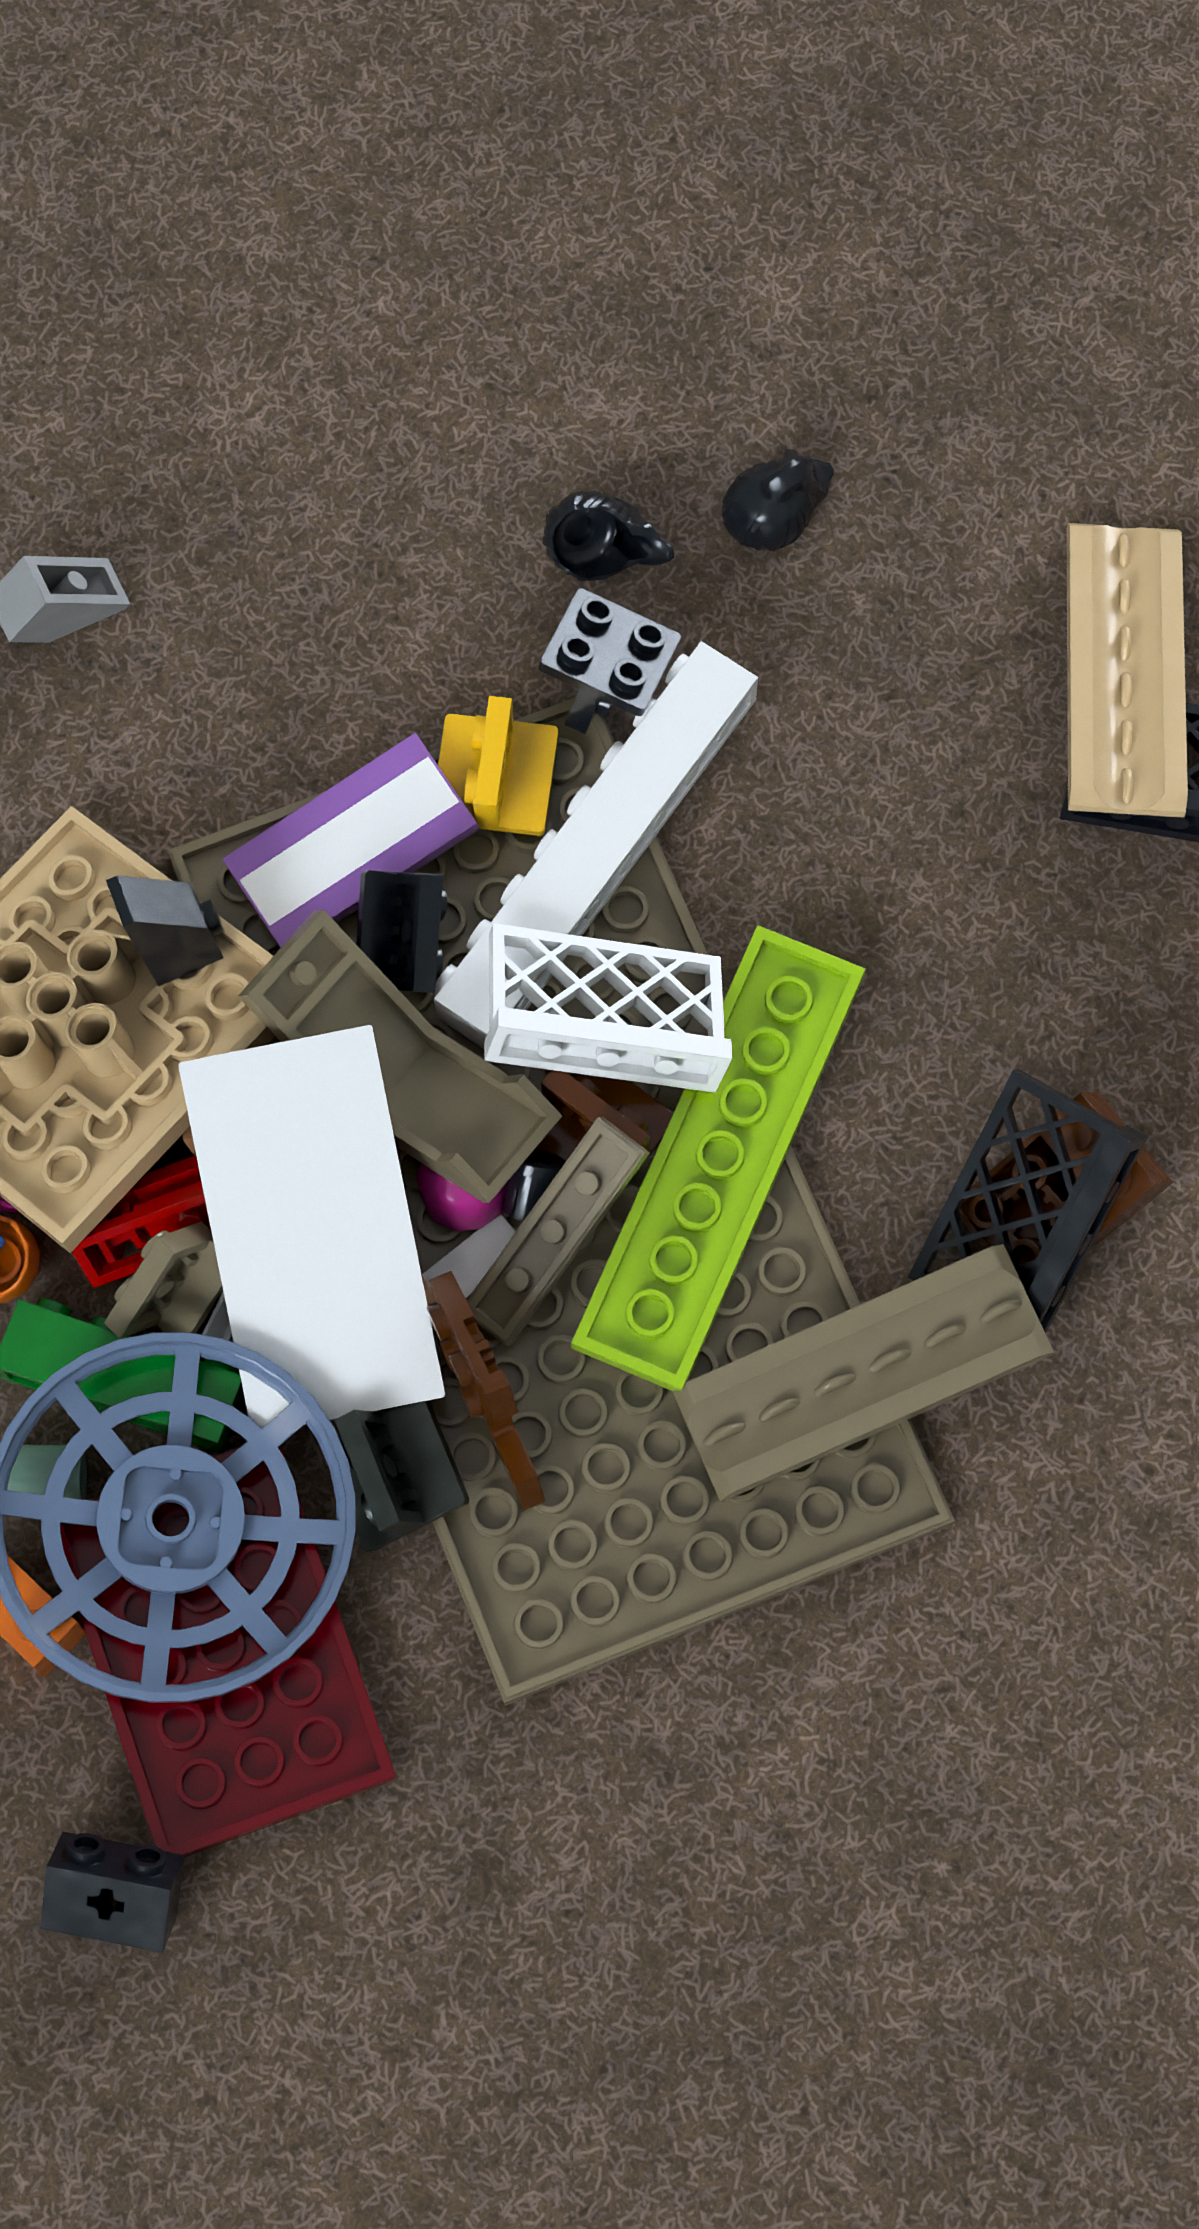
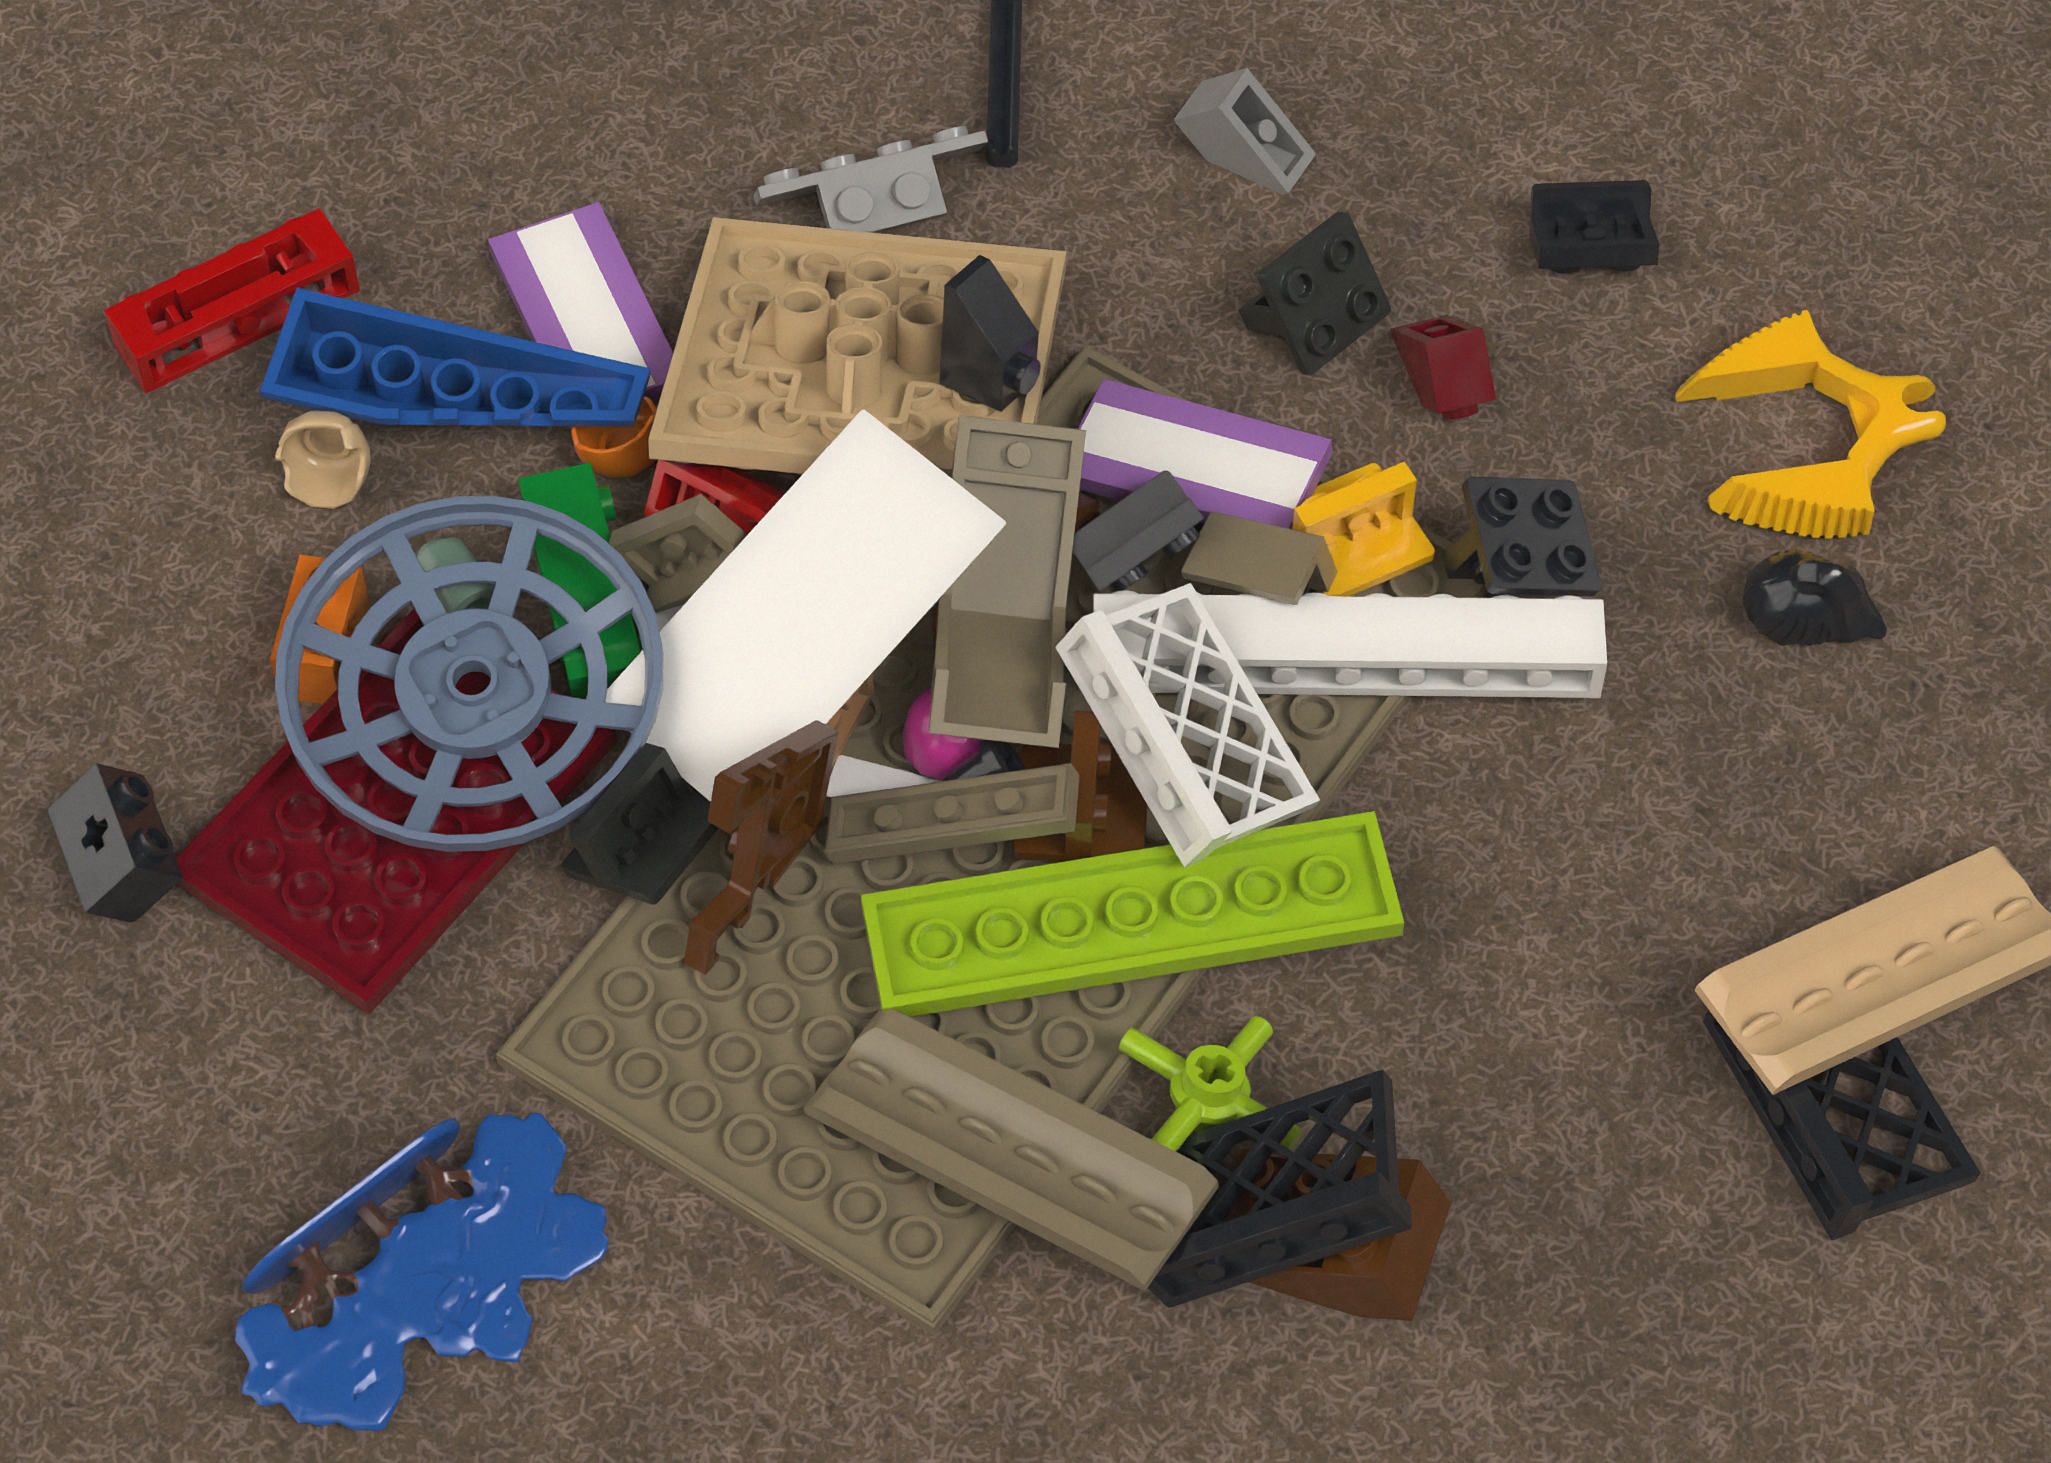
camera: 55 degrees right, 15 degrees down
(256, 651) = (1319, 294): none -> pearl dark grey bracket
(341, 411) = (1592, 225): none -> black bracket
(384, 600) = (1446, 364): none -> dark red slope
(490, 860) = (1259, 559): none -> dark tan panel
(600, 537) = (1645, 479): black hair -> none
(672, 1861) = (437, 1274): none -> blue plant
(700, 419) = (1823, 496): none -> yellow piece
(879, 1200) = (1206, 1085): none -> lime bar

